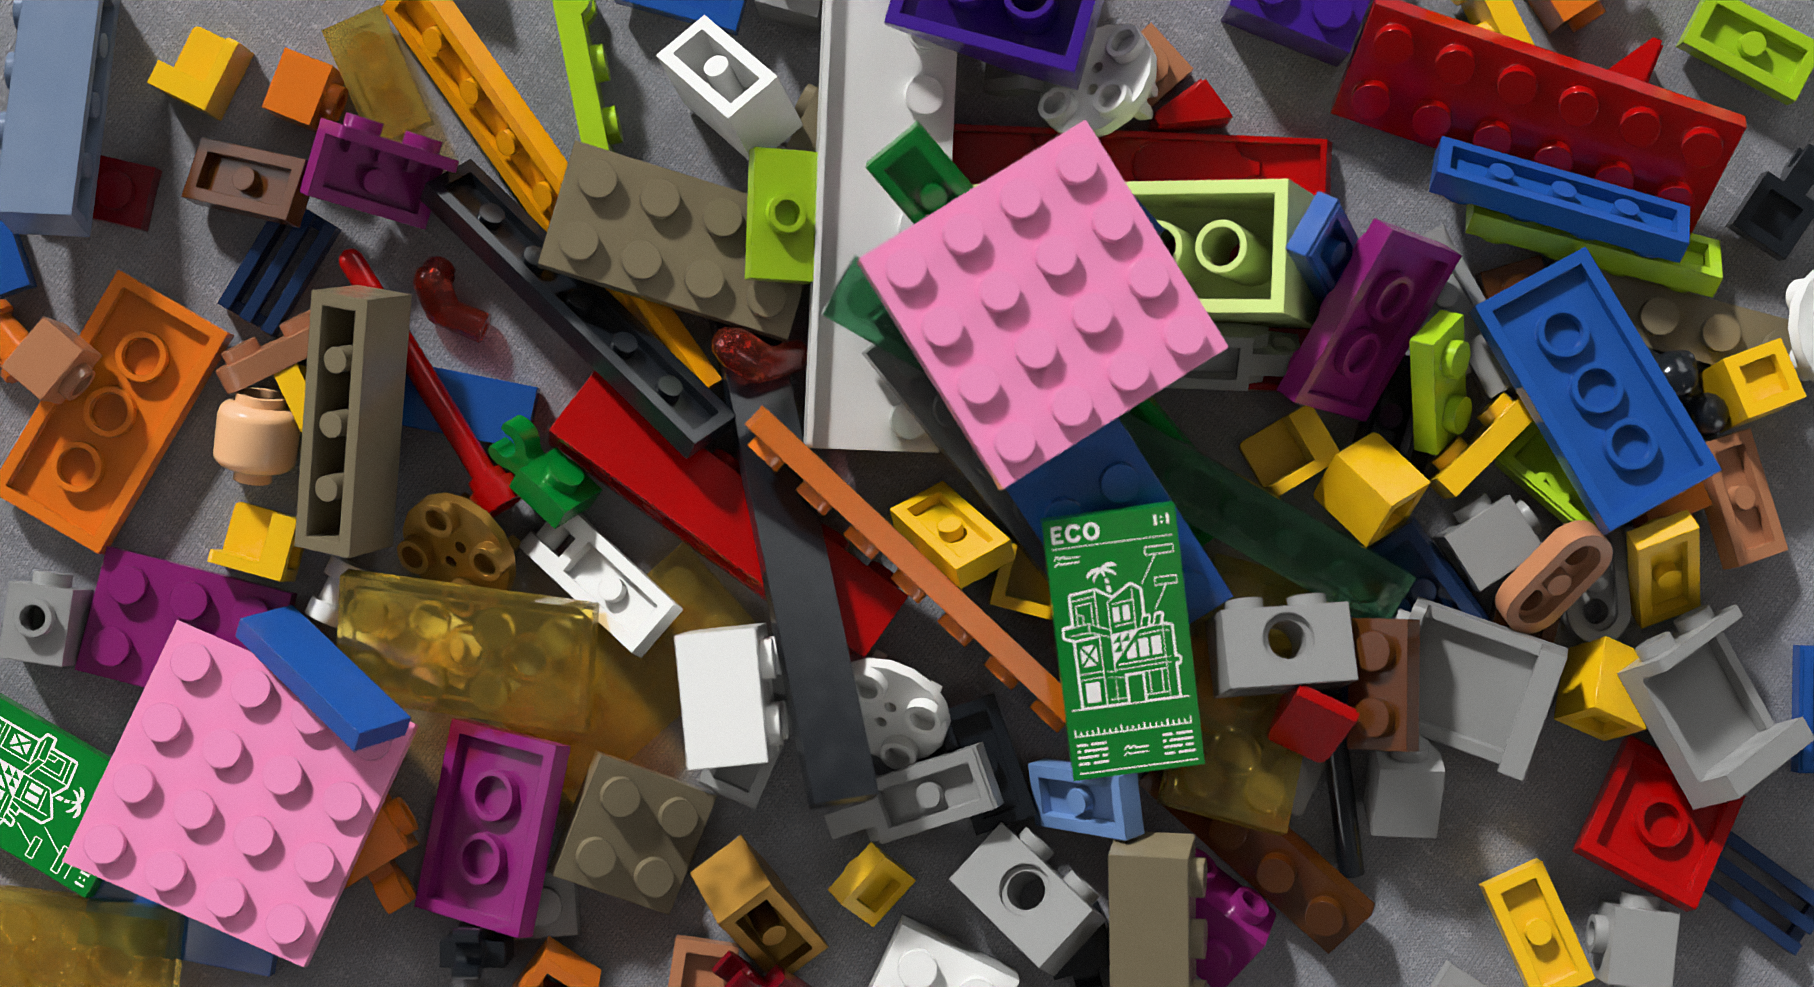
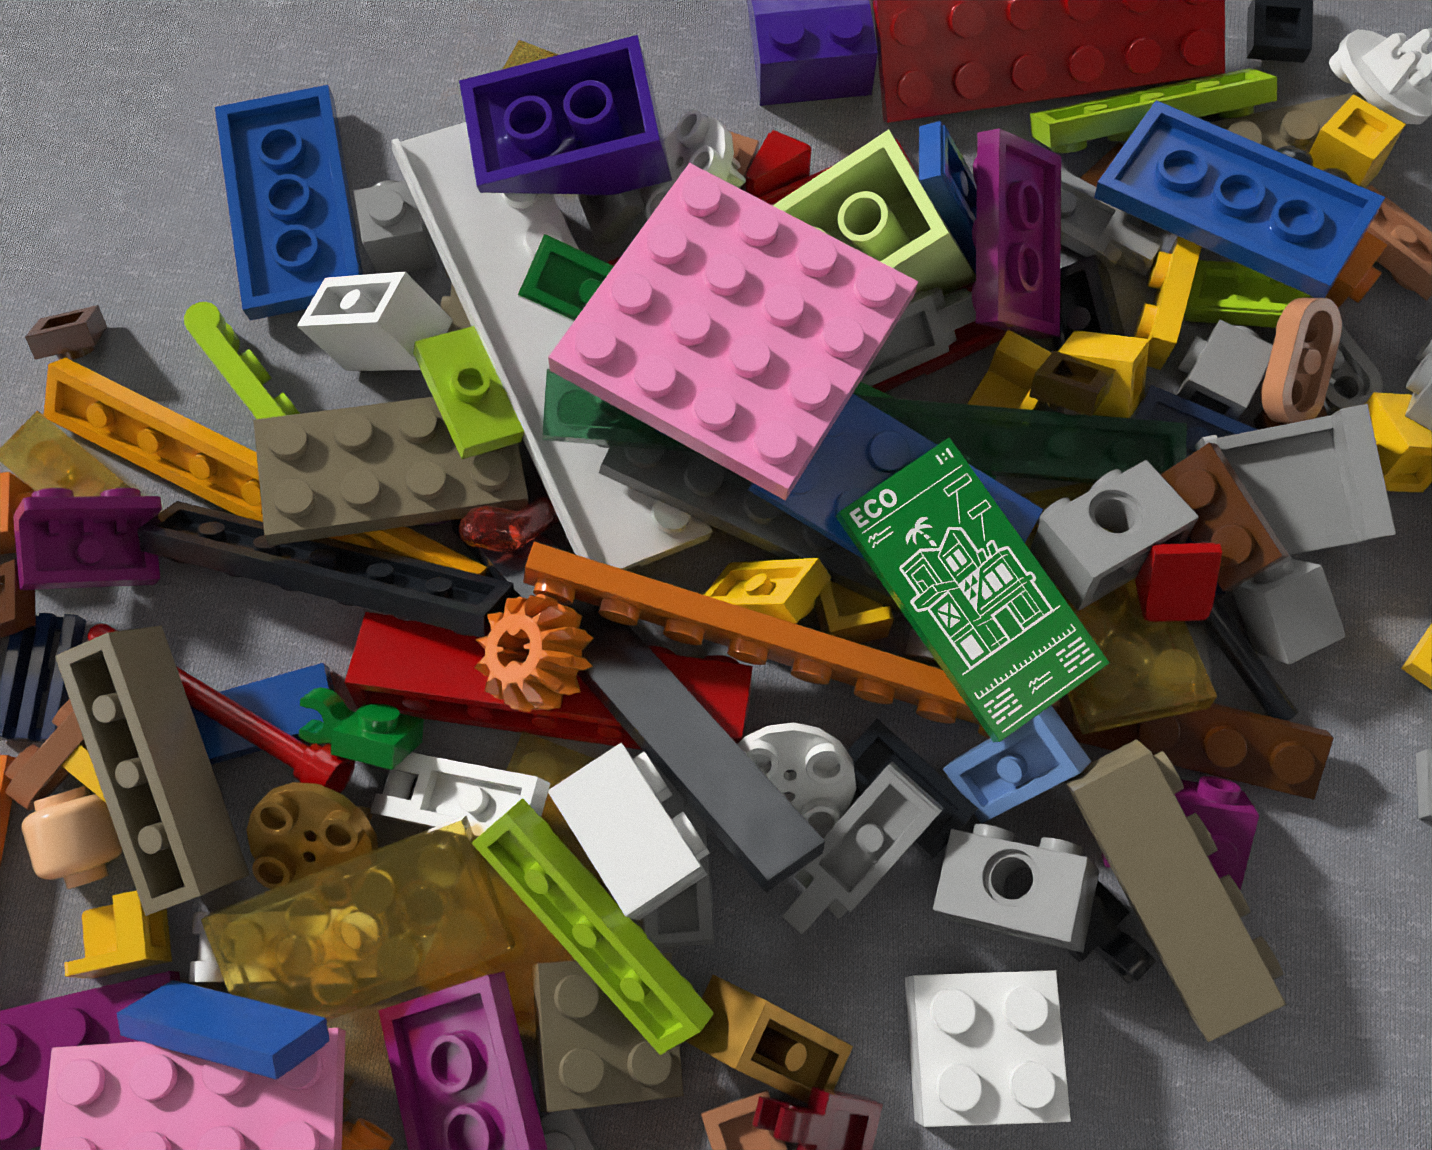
camera: 25 degrees left, 15 degrees down
(440, 303) = (202, 635): clear red arm -> none
(657, 752) = (593, 928): none -> lime plate
(721, 499) = (533, 653): none -> orange gear
(871, 884) = (861, 958): yellow plate -> none
(1328, 494) = (1071, 384): none -> dark brown plate
(1439, 382) = (1096, 241): lime plate -> none
(1560, 200) = (1133, 80): blue plate -> none
(1664, 568) = (1383, 313): yellow plate -> none

